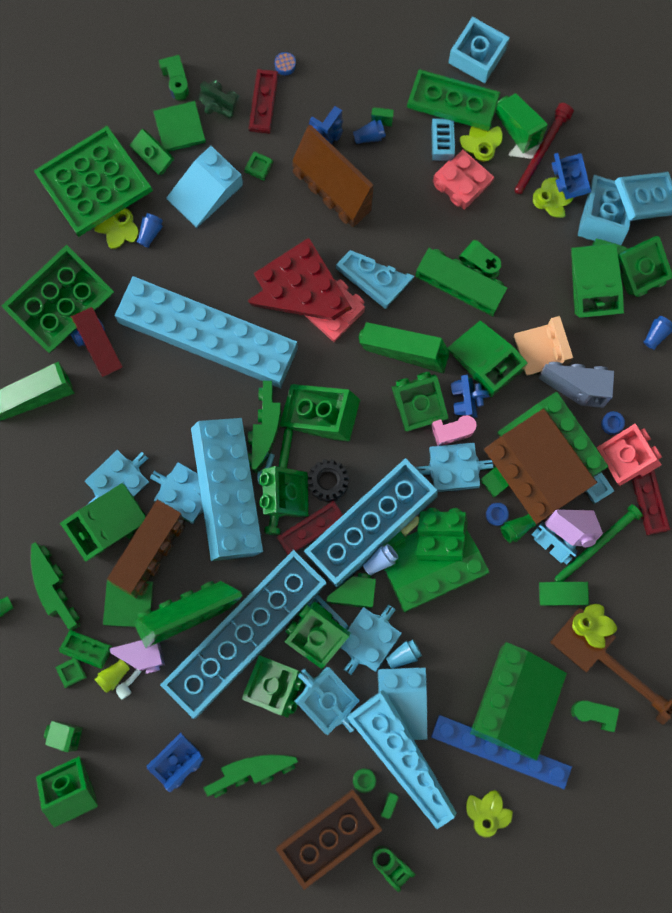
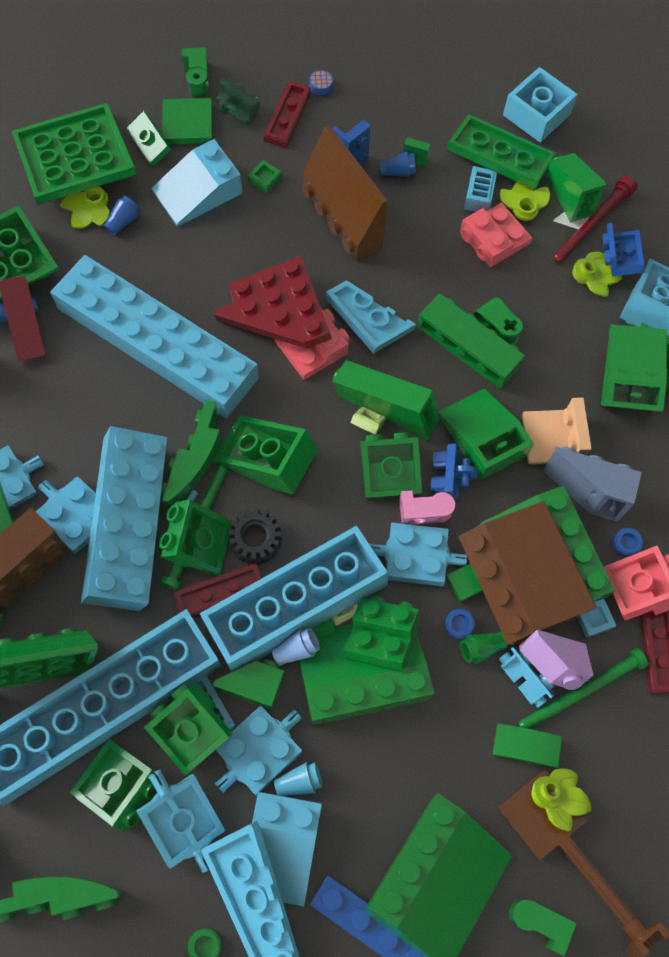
camera: 10 degrees right, 10 degrees down
(394, 367) = (368, 420): none -> yellowish green tile

